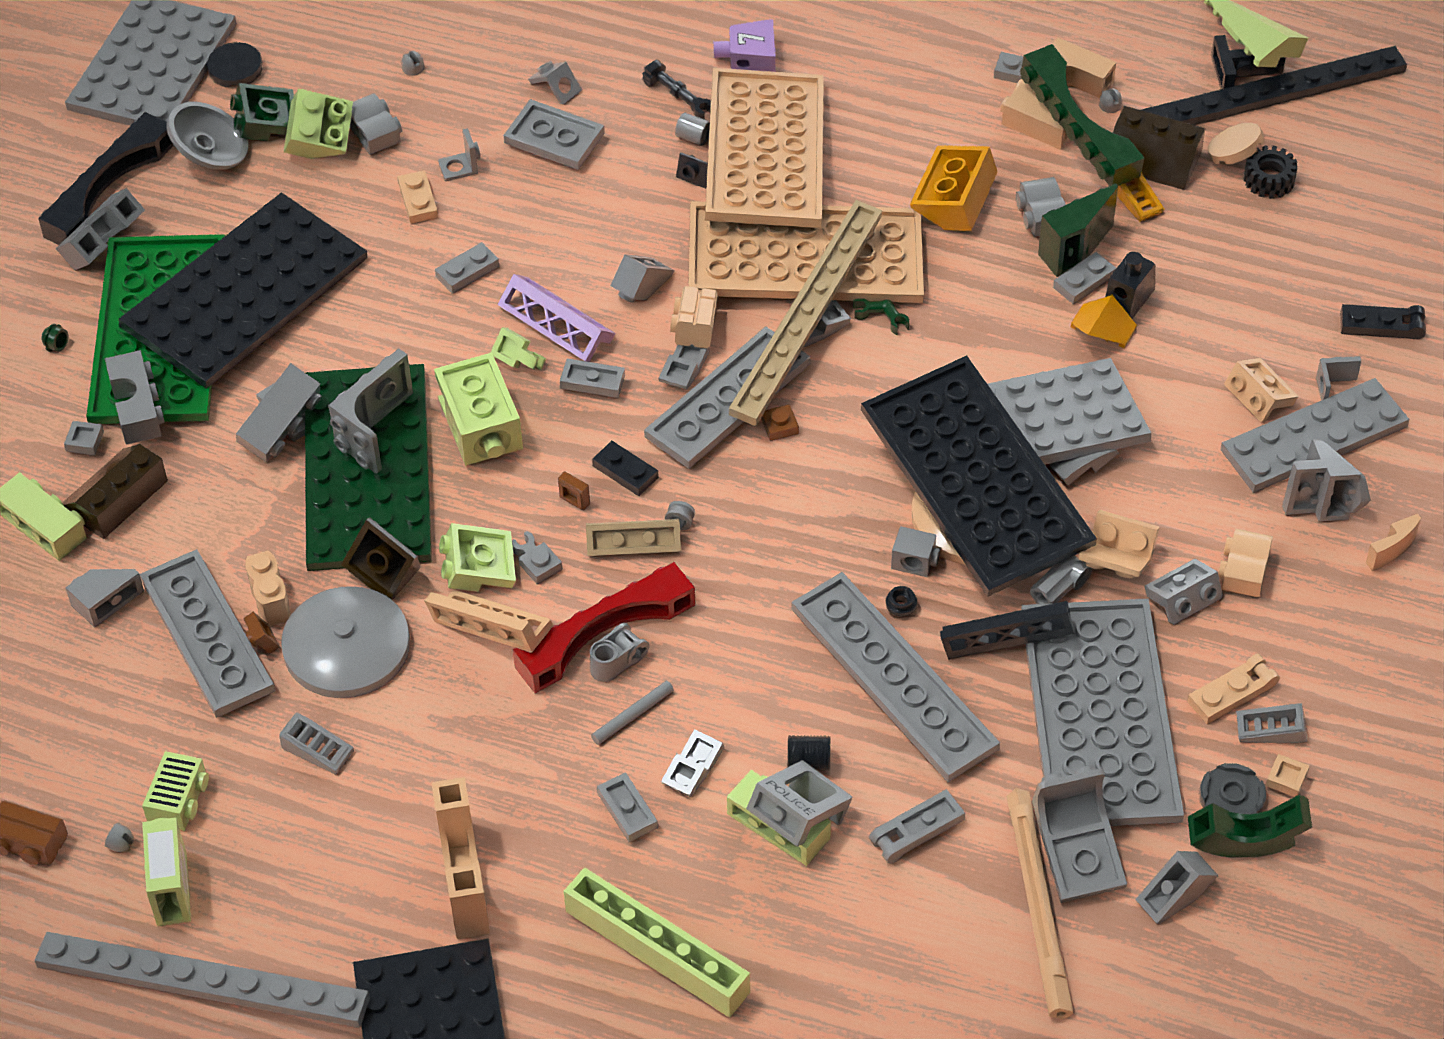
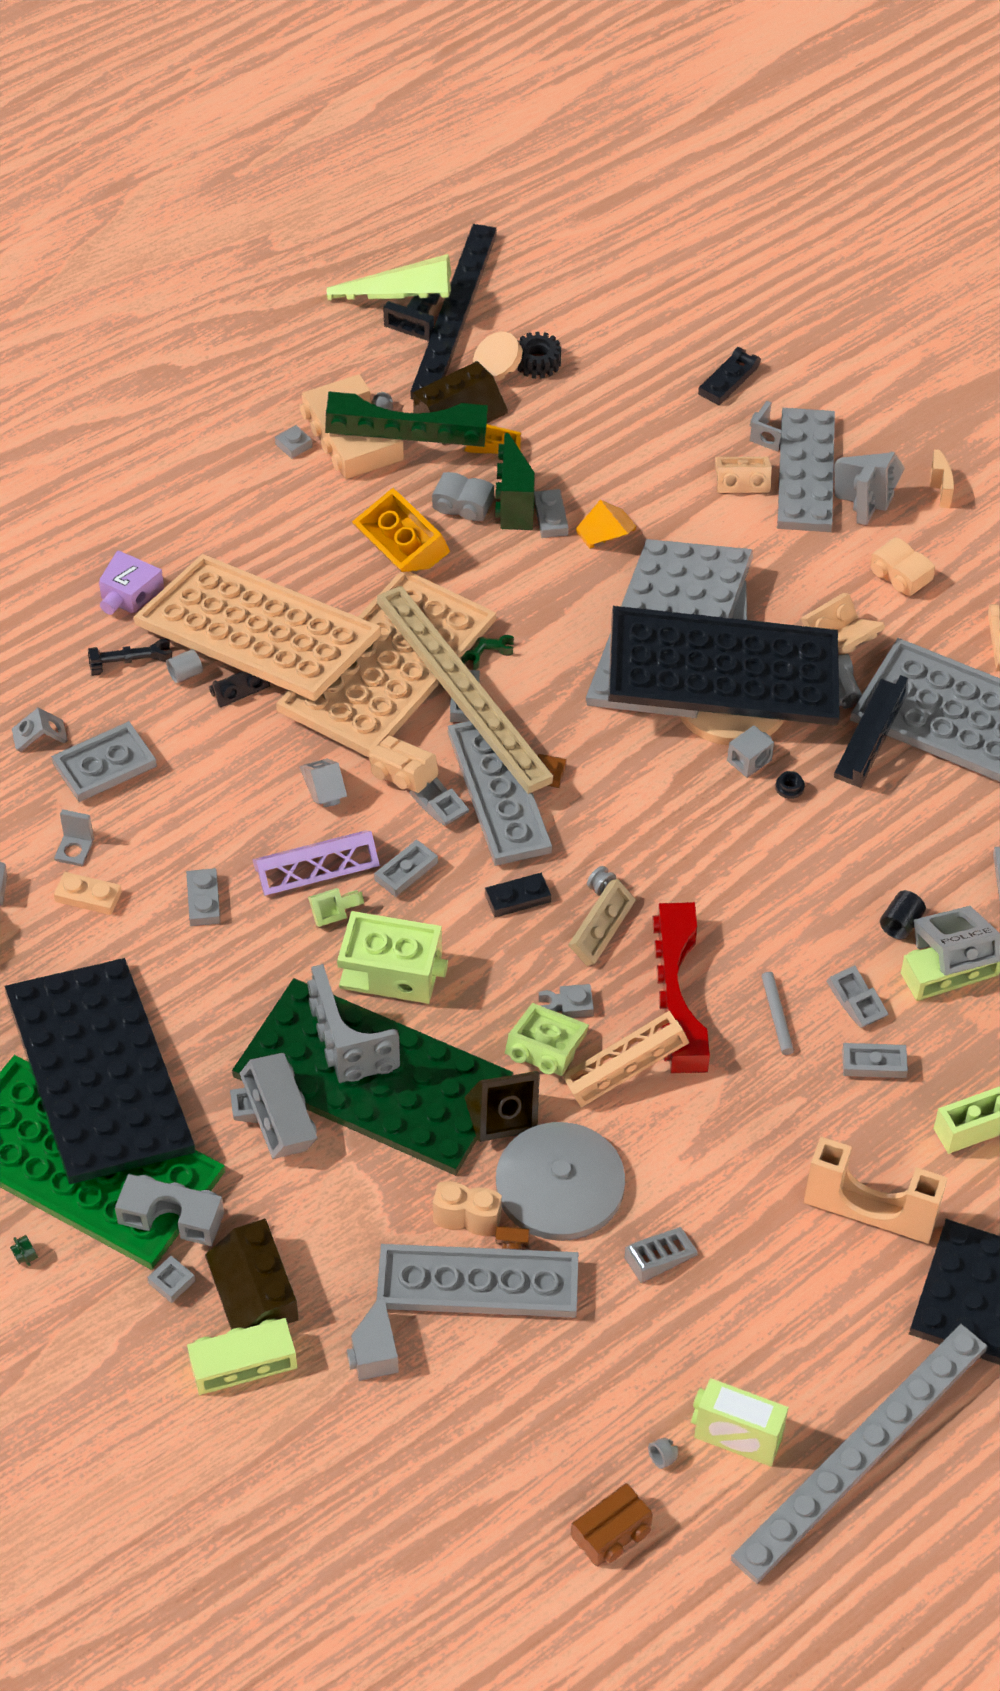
camera: 60 degrees left, 0 degrees up
(176, 789) = (643, 1382): yellowish green brick -> none
(574, 490) = (522, 938): dark orange tile -> none
(616, 653) = (713, 993): light grey piece -> none
(895, 677) = (860, 825): light grey plate -> none
(1132, 278) = (590, 481): black torso -> none
(1185, 590) = (900, 613): light grey bracket -> none

